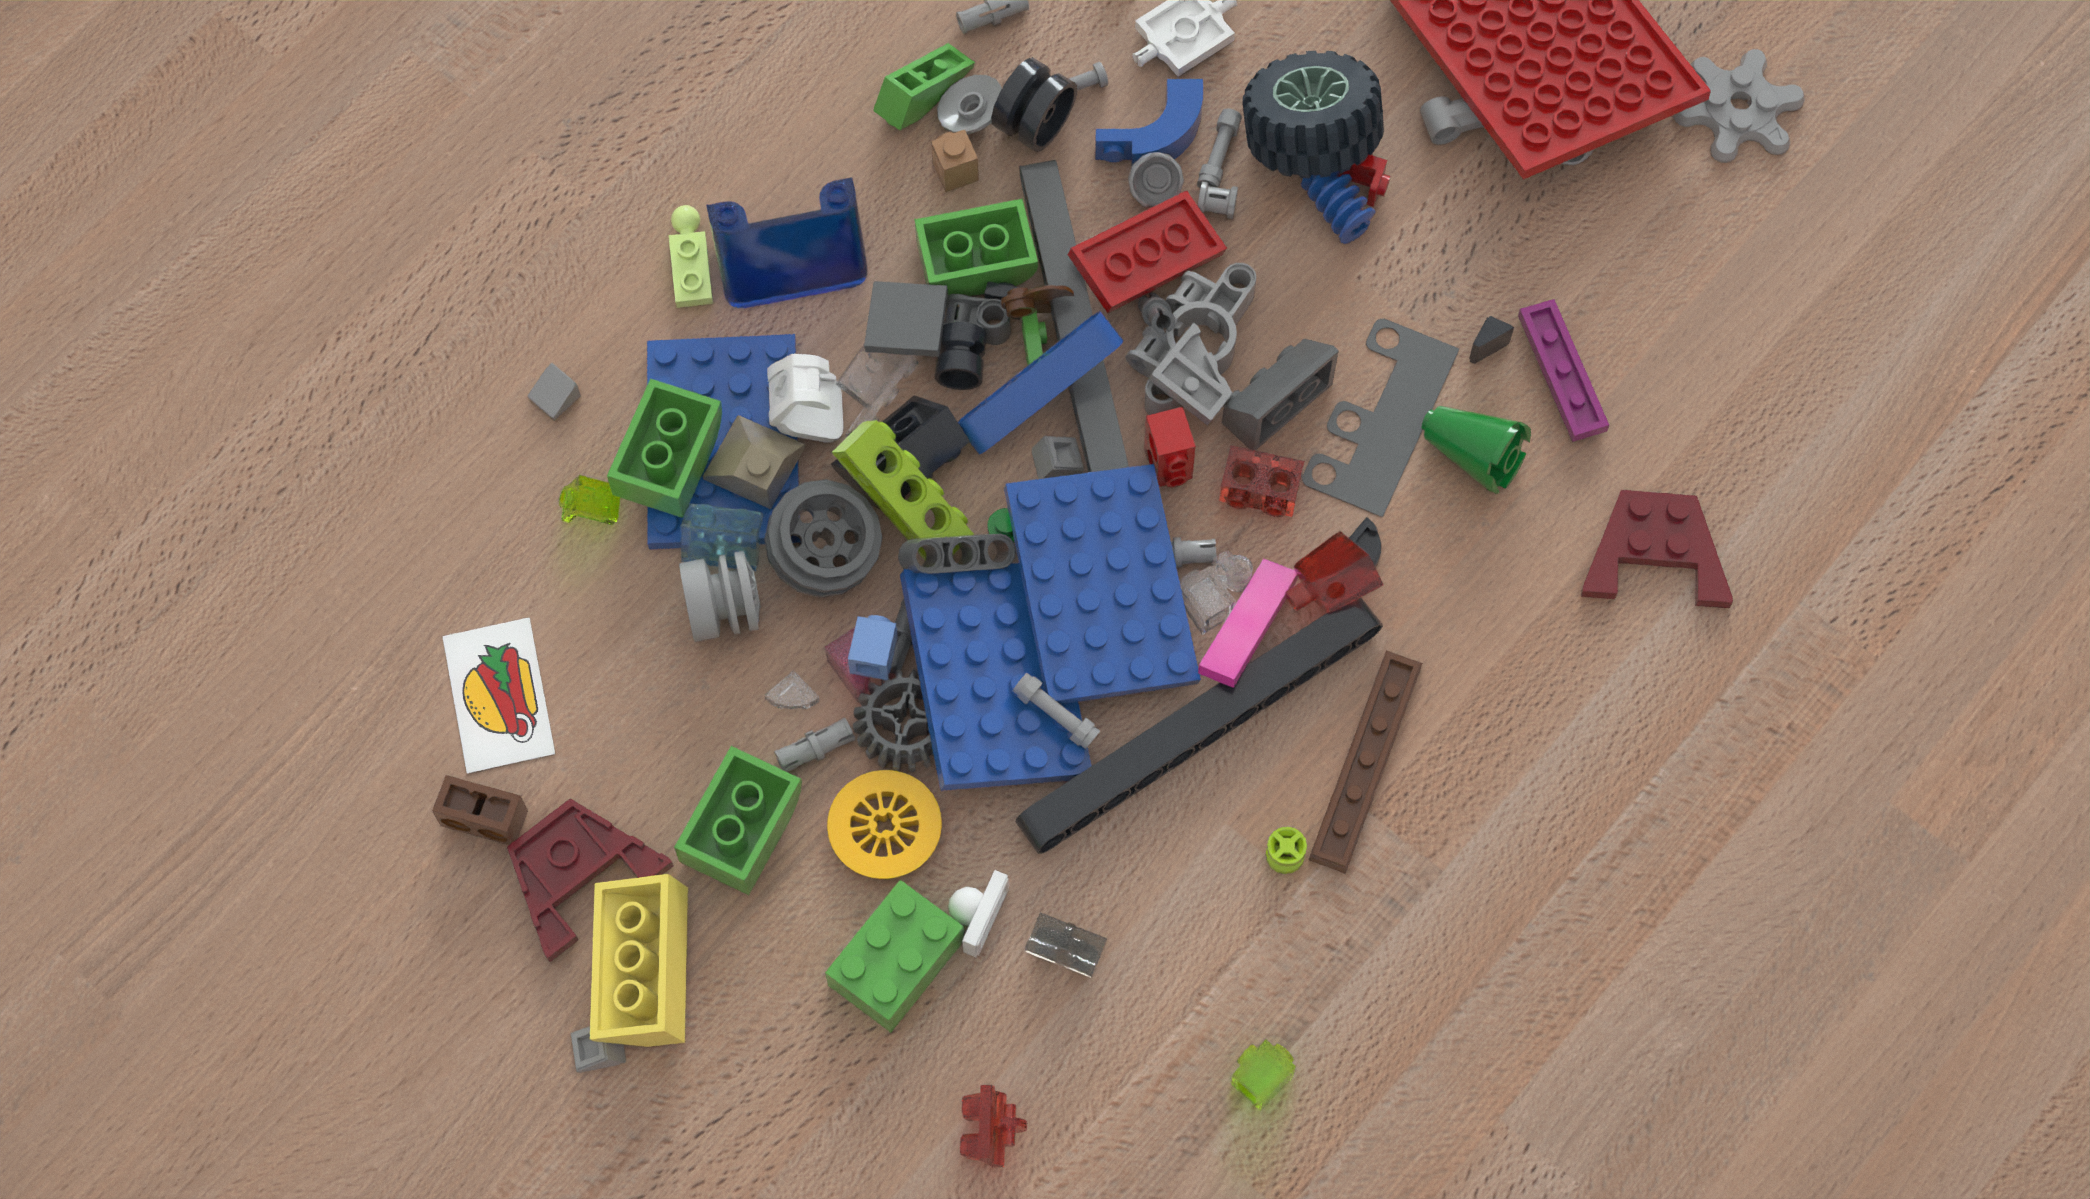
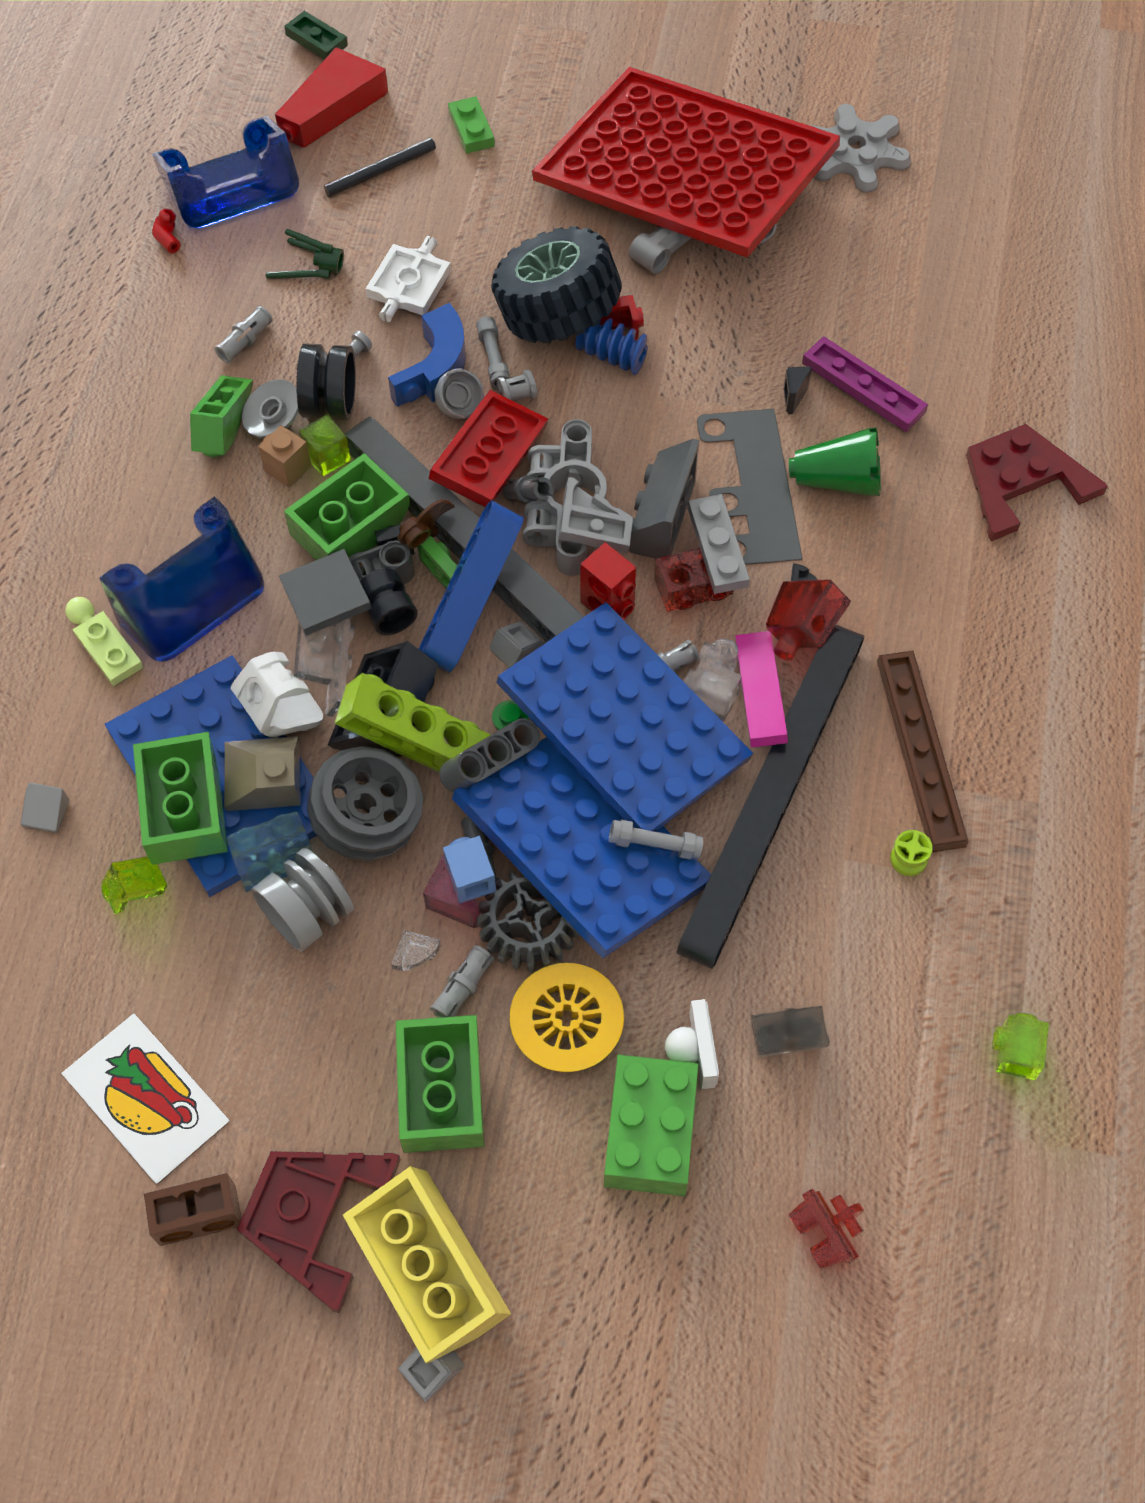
camera: 30 degrees left, 5 degrees down
(998, 168) = (325, 445): none -> clear neon green brick
(1297, 461) = (718, 544): none -> light grey plate

